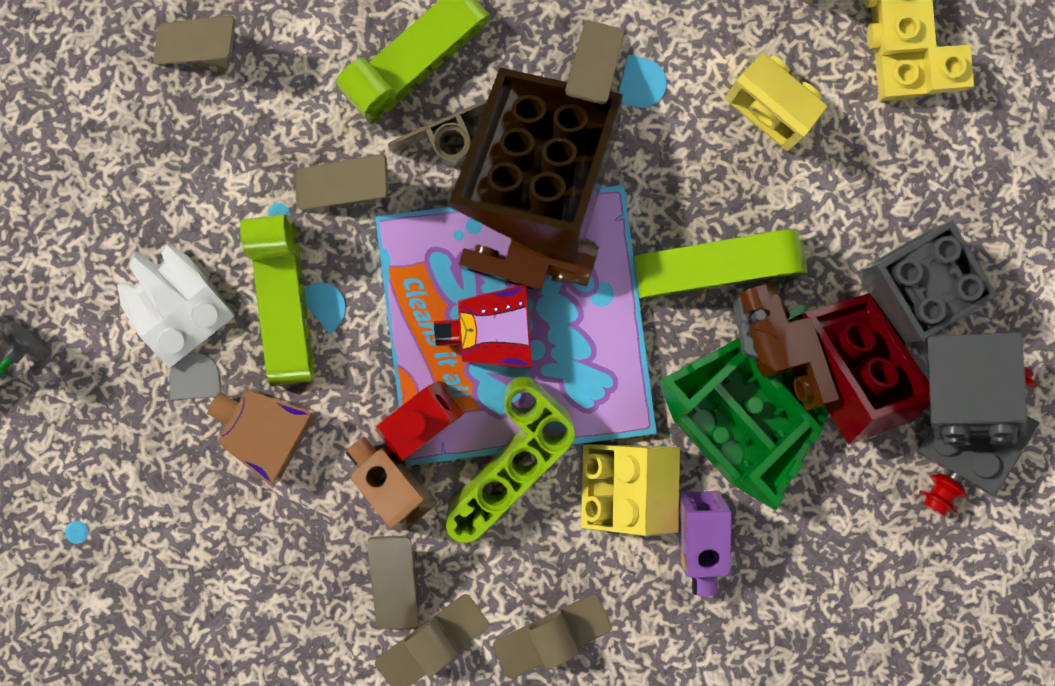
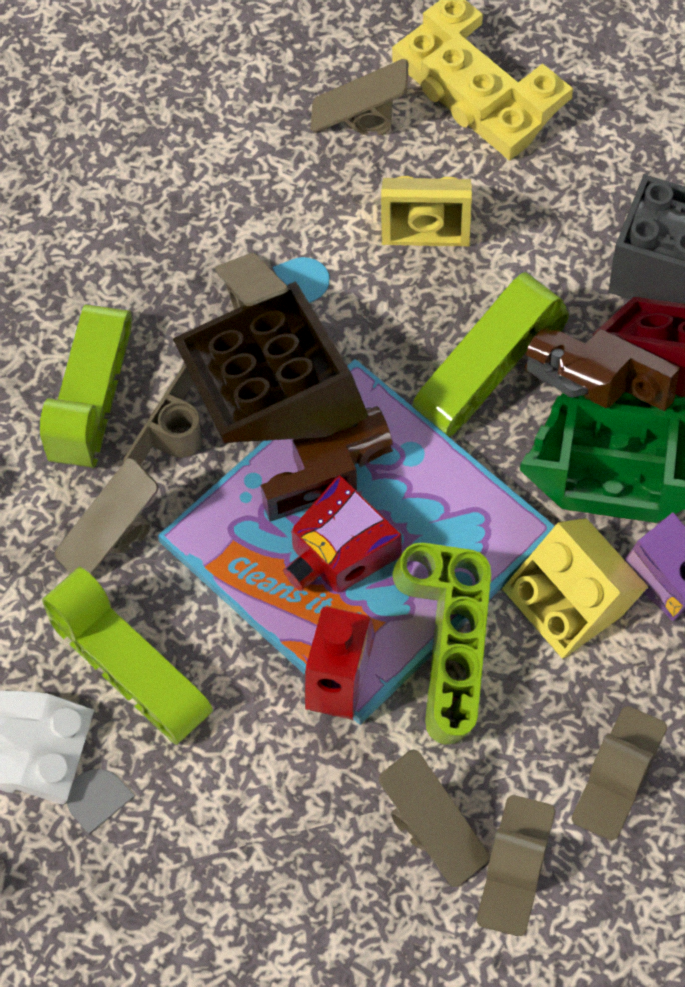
camera: 35 degrees left, 25 degrees down
(261, 430) = (199, 785): medium nougat torso -> none
(325, 304) = (174, 644): medium azure piece -> none
(401, 498) = (358, 735): medium nougat torso -> none

